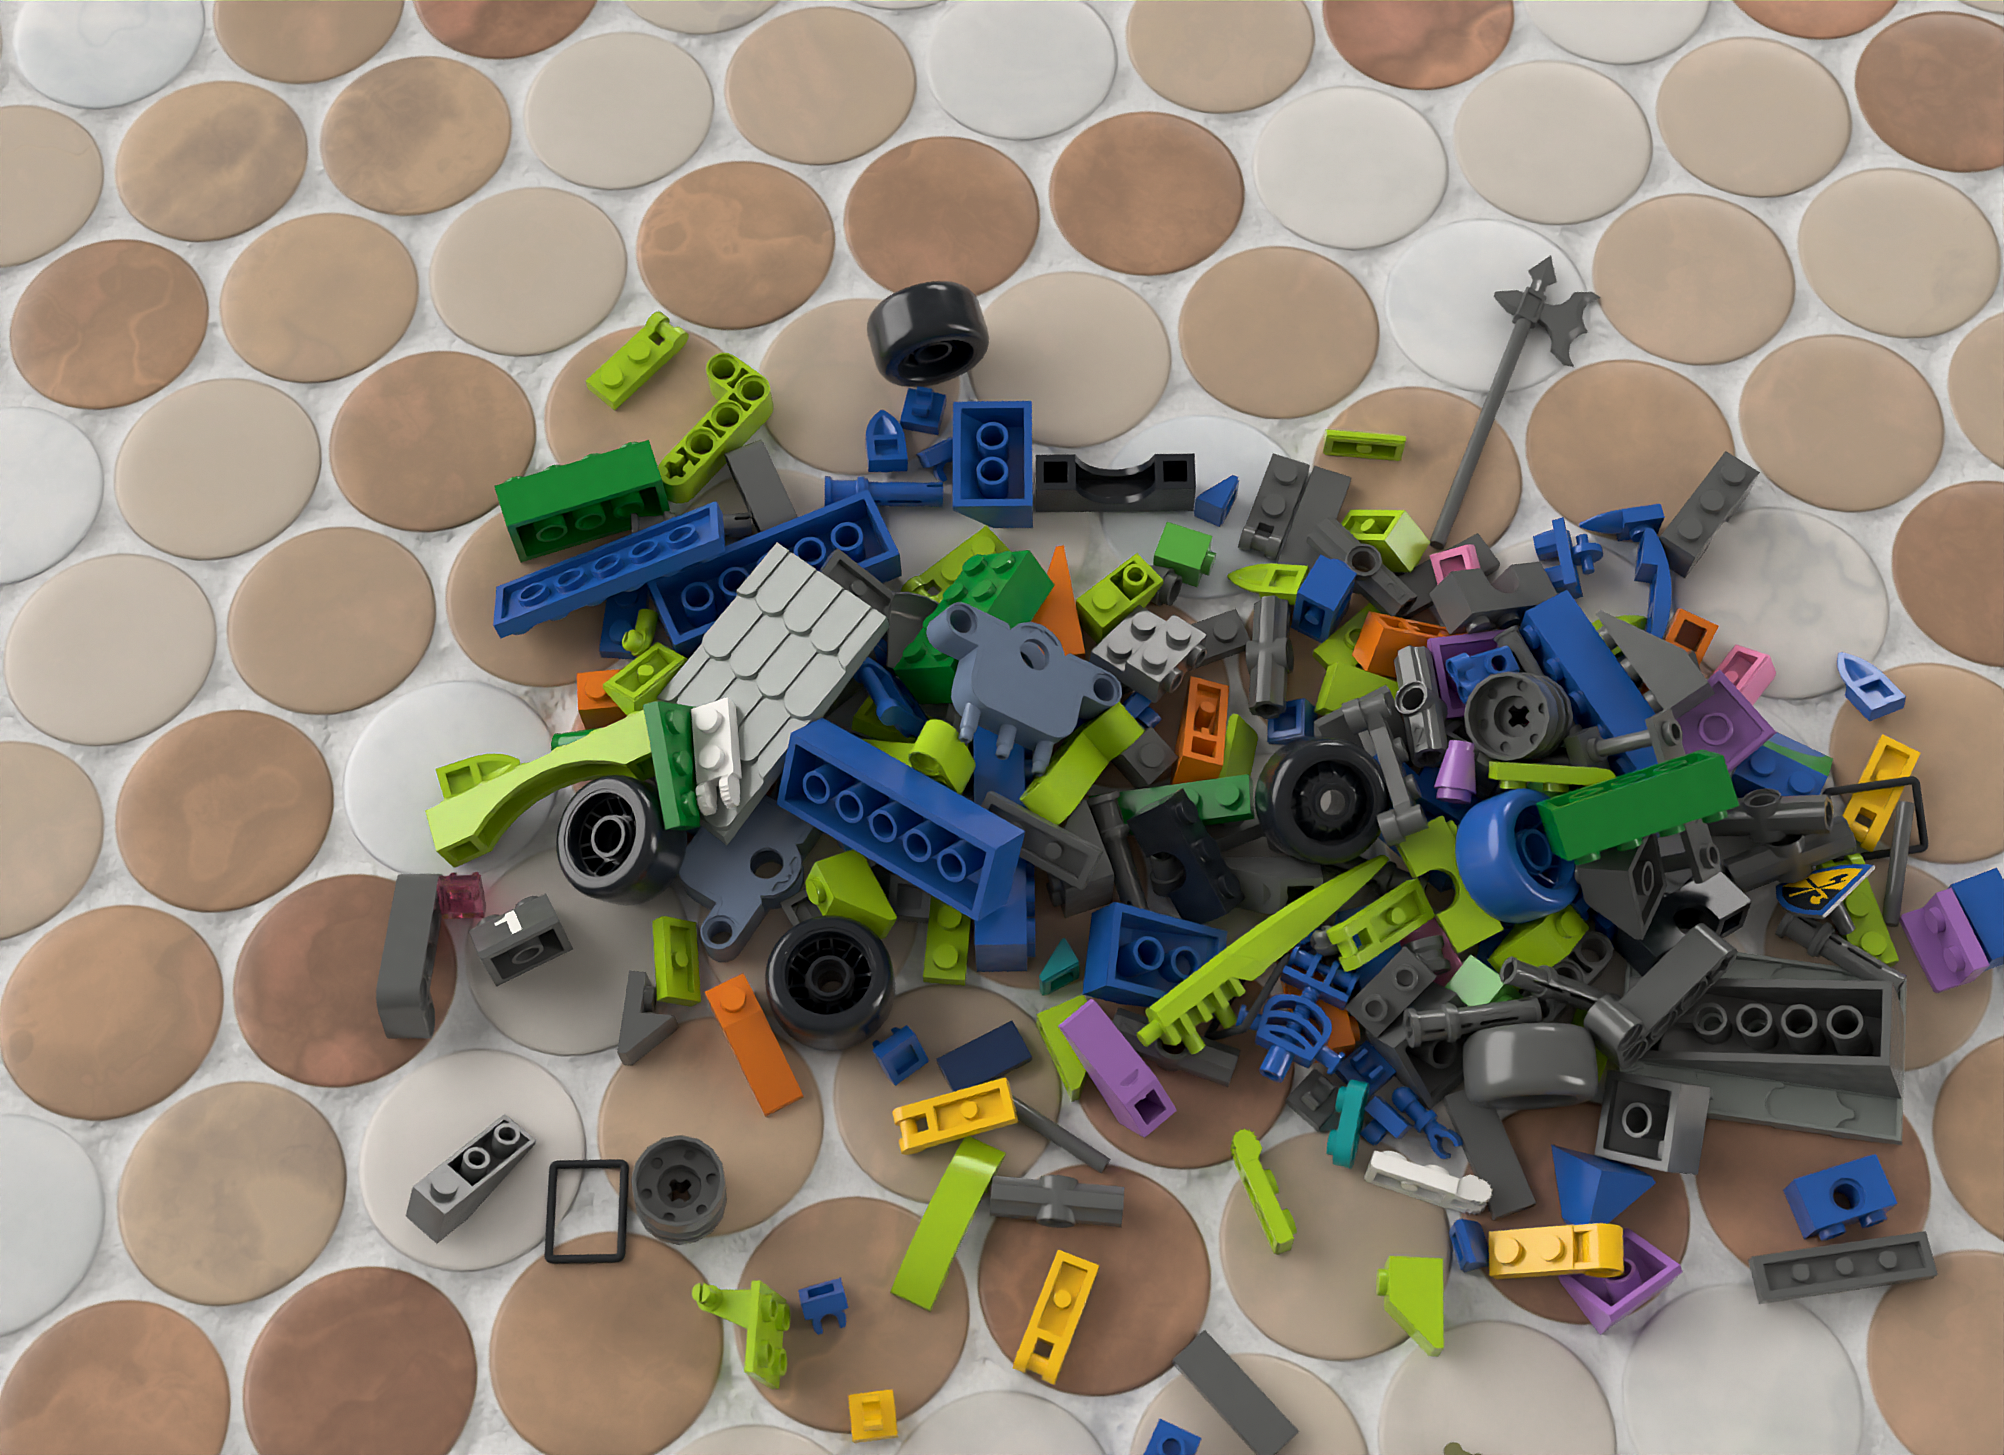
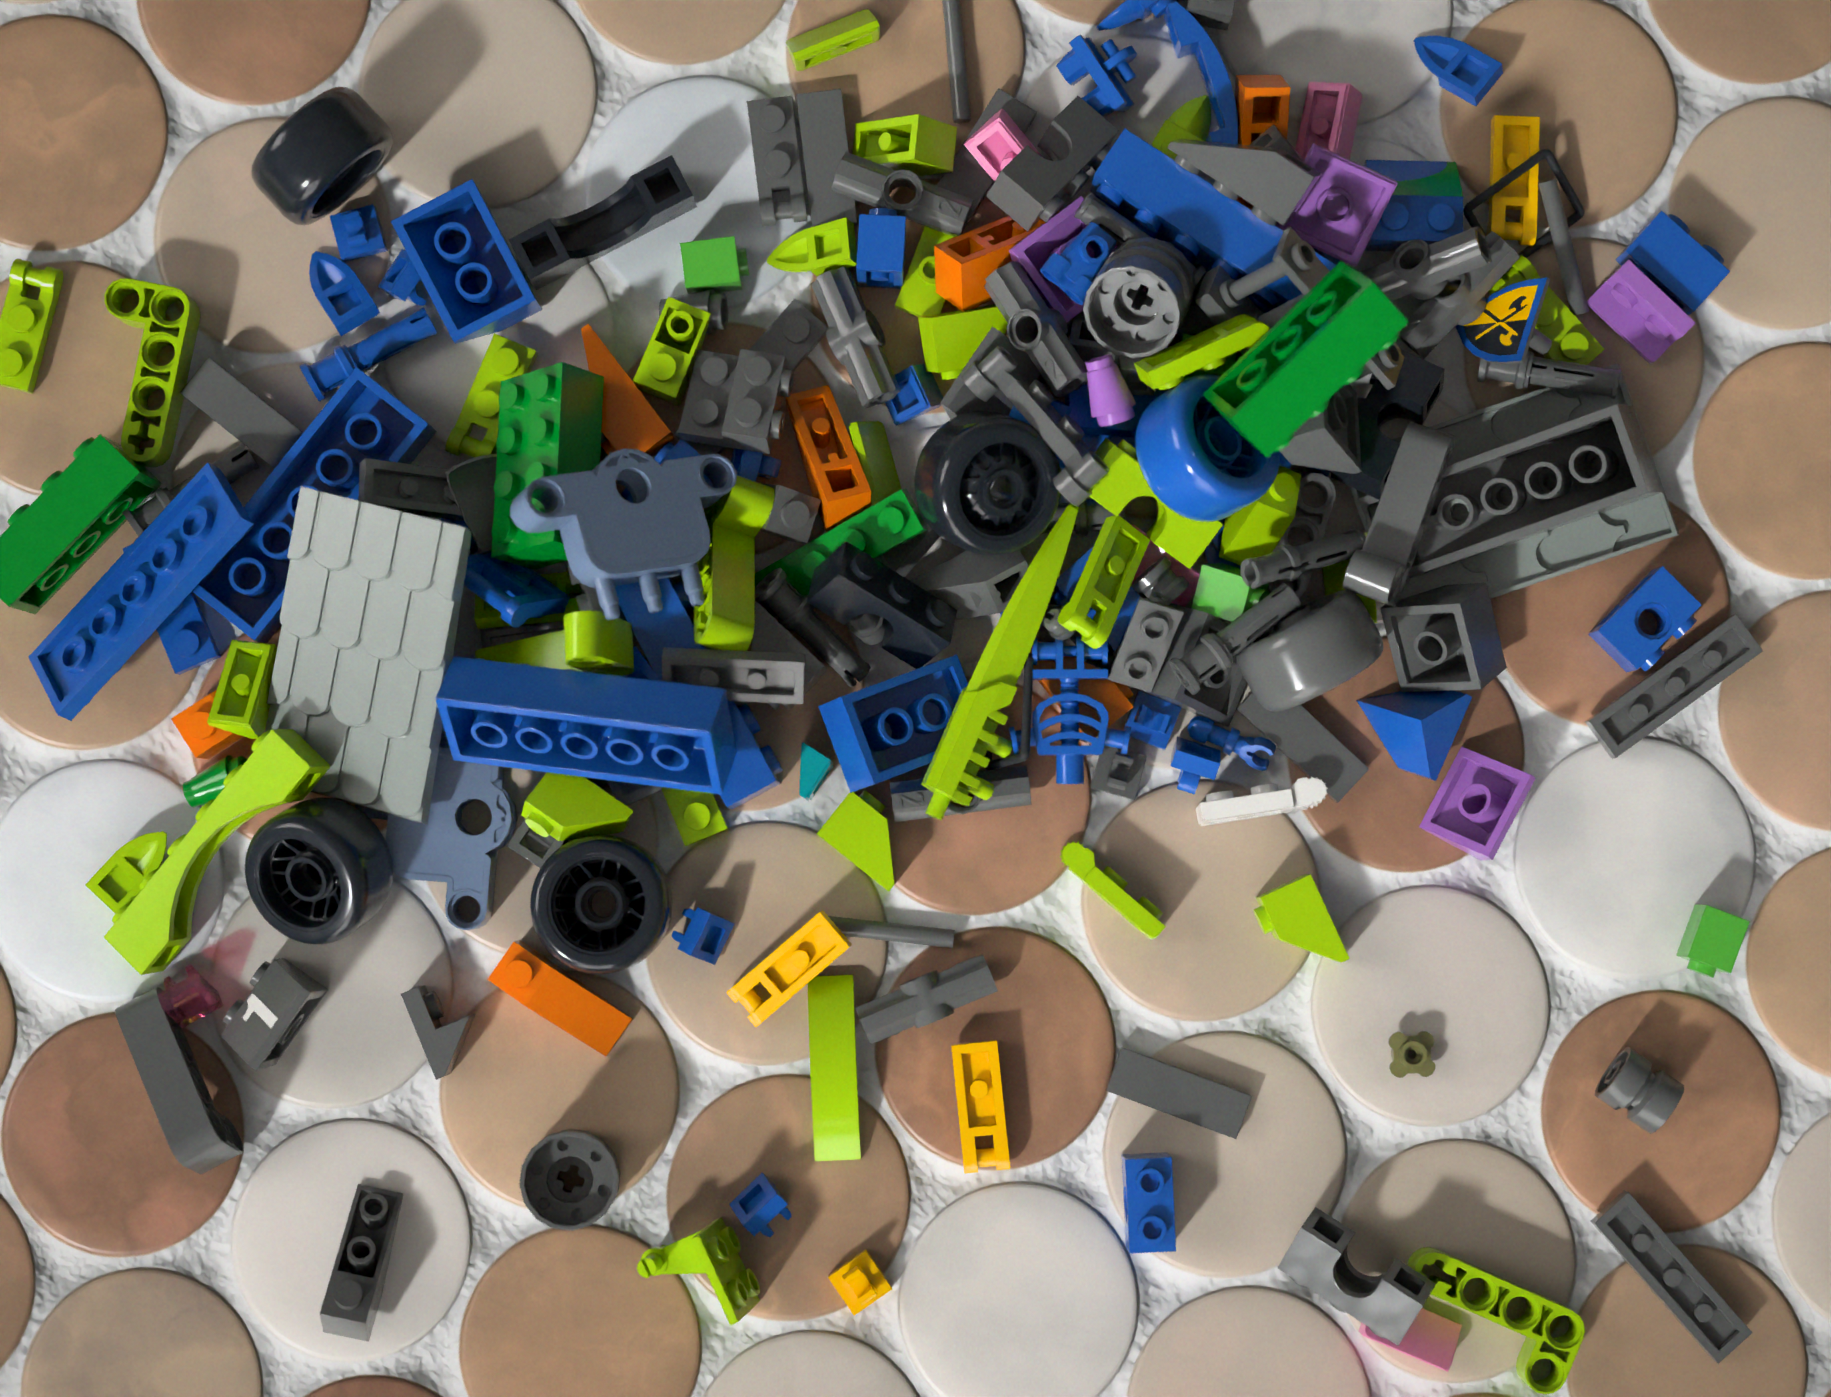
camera: 30 degrees left, 20 degrees up
(622, 1215) = (455, 1250): black piece -> none
(642, 637) = (214, 646): lime arm -> none
(674, 762) = (328, 770): green wing -> none
(676, 961) = (438, 954): lime plate -> none
(716, 754) = (367, 744): white hinge -> none
(985, 1058) = (786, 895): dark blue tile -> none
(1117, 1070) = (922, 853): medium lavender slope -> none
(1217, 501) = (718, 188): blue slope -> none
(1345, 1141) = (1165, 804): teal plate -> none
(1469, 1244) = (1327, 839): blue slope -> none
(1557, 1250) = (1410, 812): yellow plate -> none

